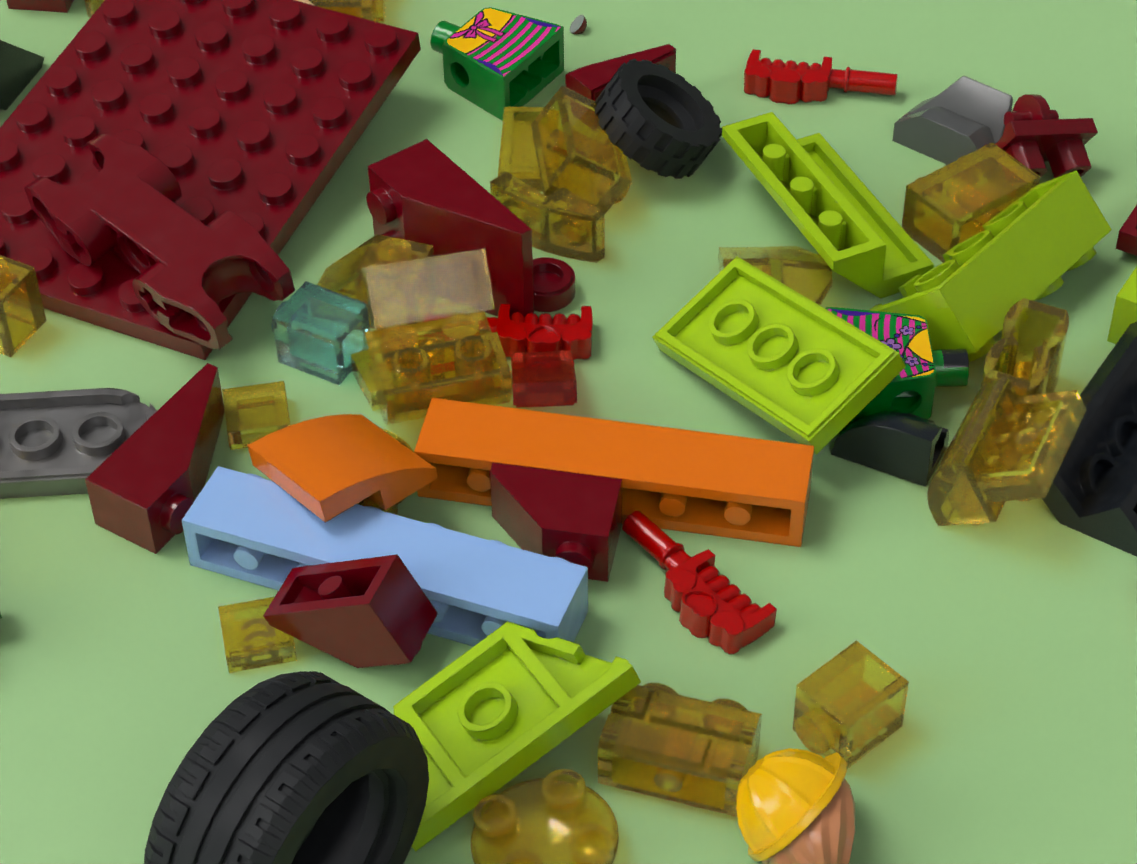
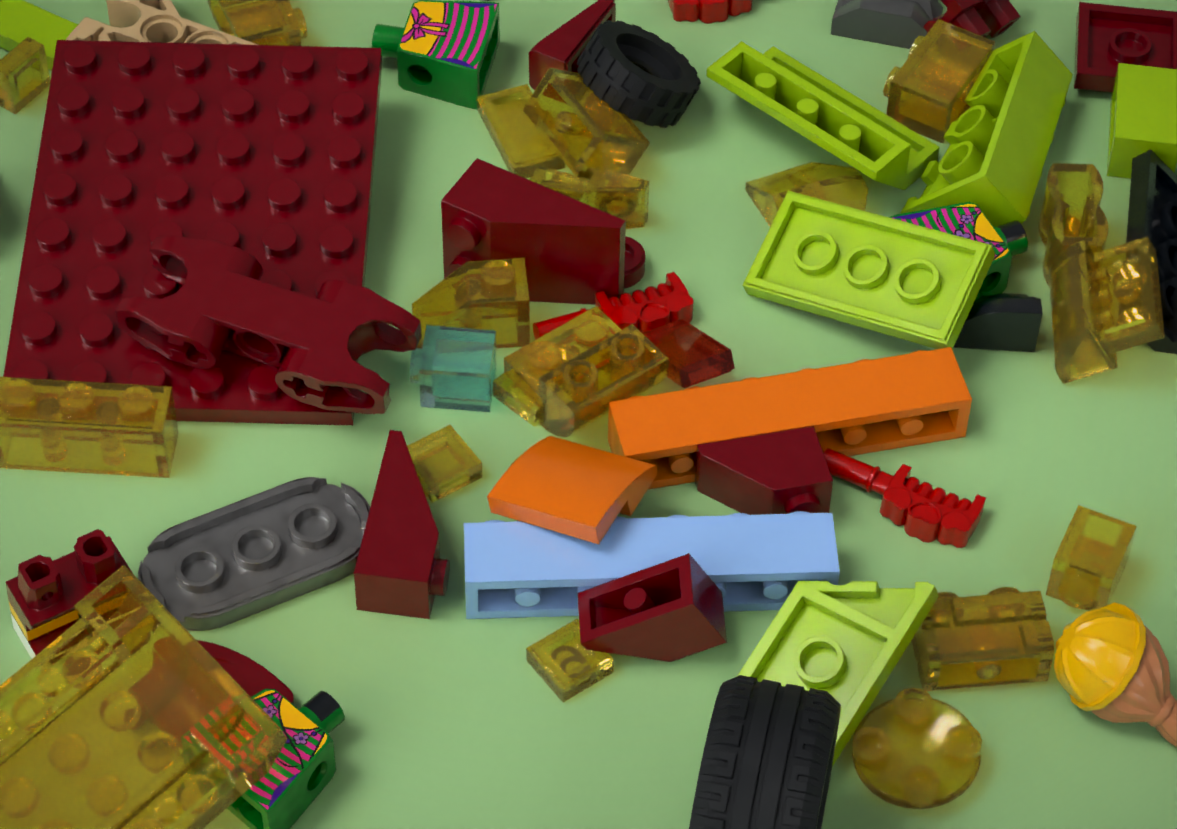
camera: 25 degrees left, 5 degrees up
(428, 288) = (546, 300): clear yellow tile -> none

